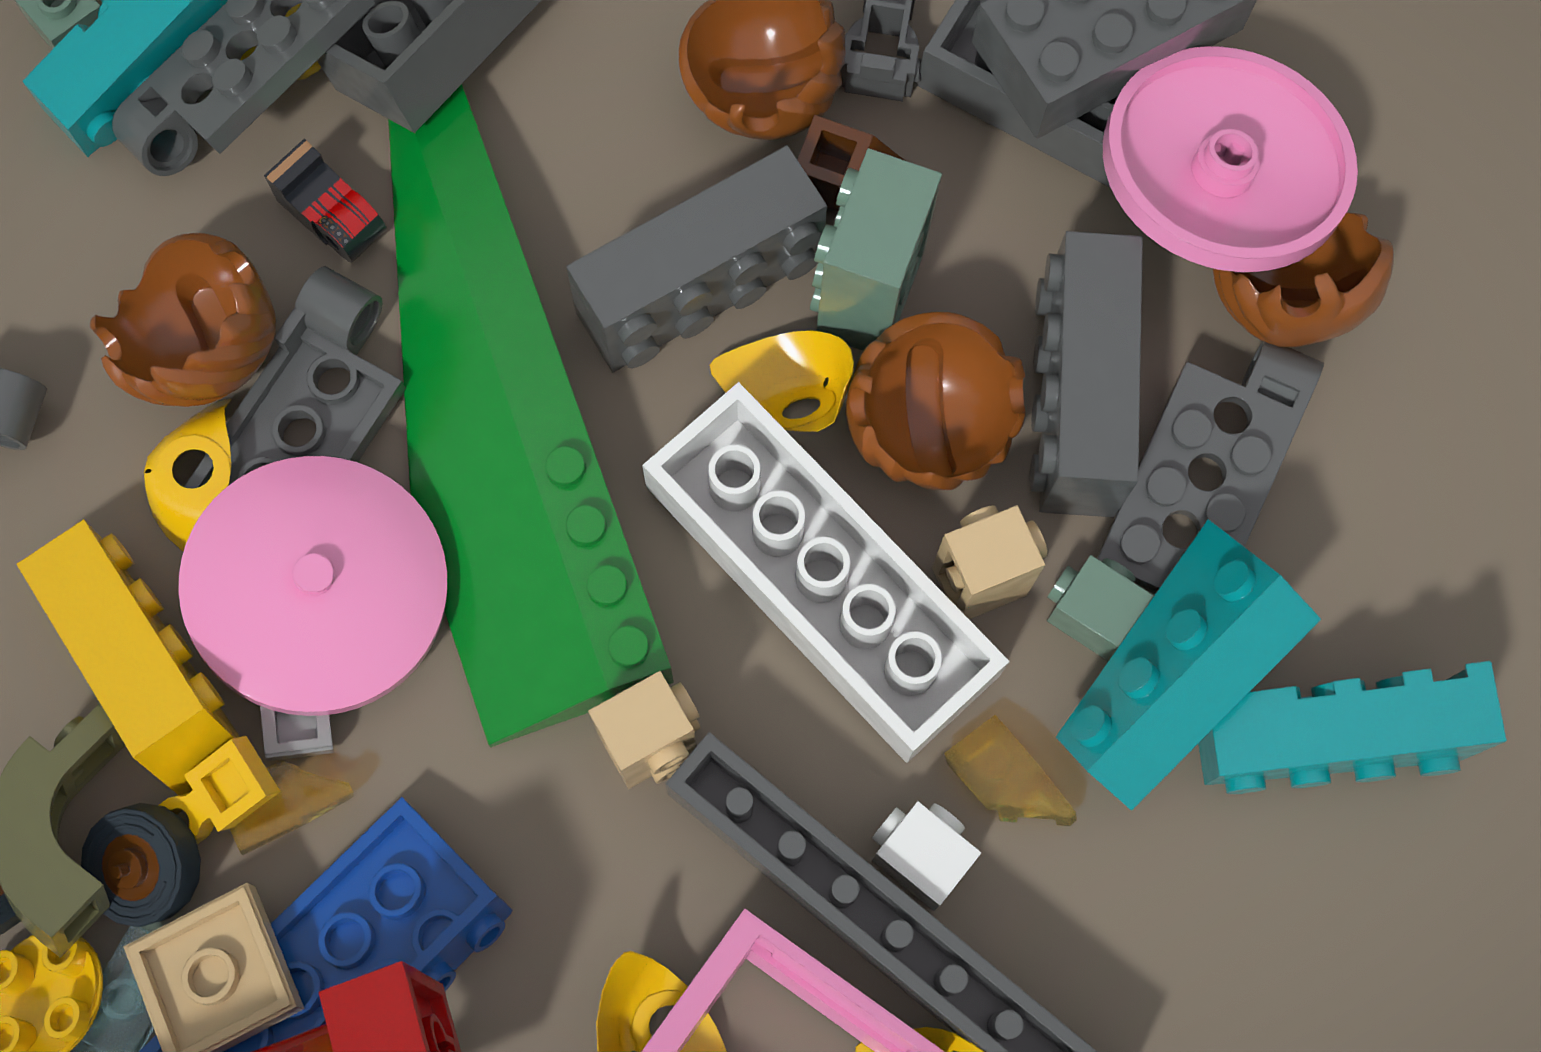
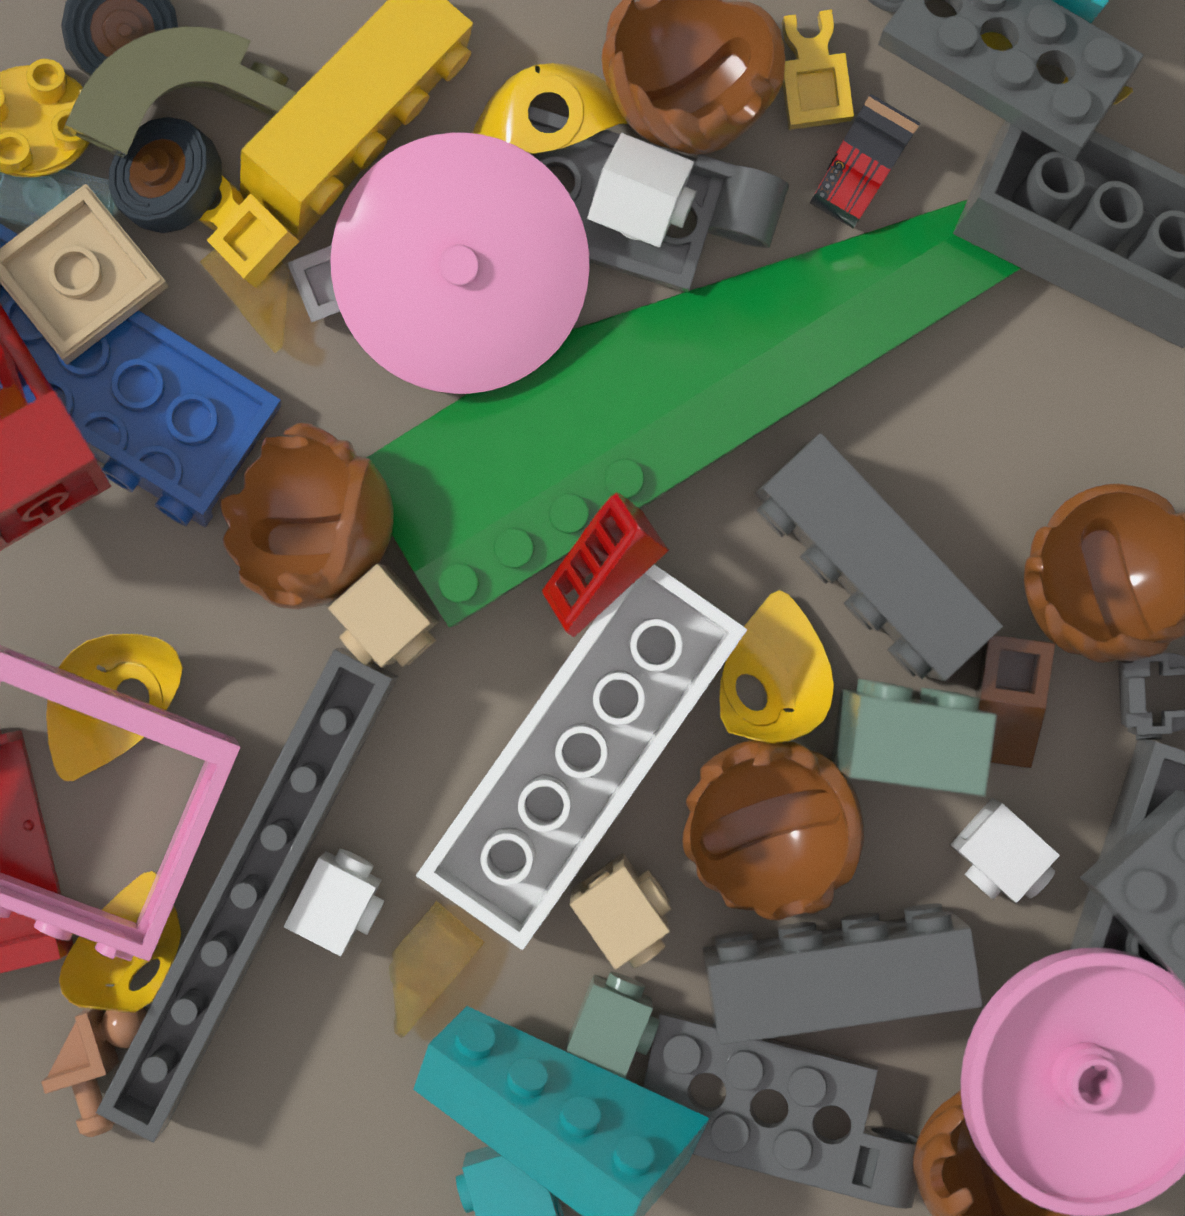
camera: 80 degrees right, 15 degrees up
(250, 224) = (815, 83): none -> yellow plate
(293, 389) = (642, 191): none -> white brick
(527, 785) = (307, 519): none -> dark orange piece
(615, 496) = (628, 546): none -> red slope
(1000, 214) = (1005, 854): none -> white brick

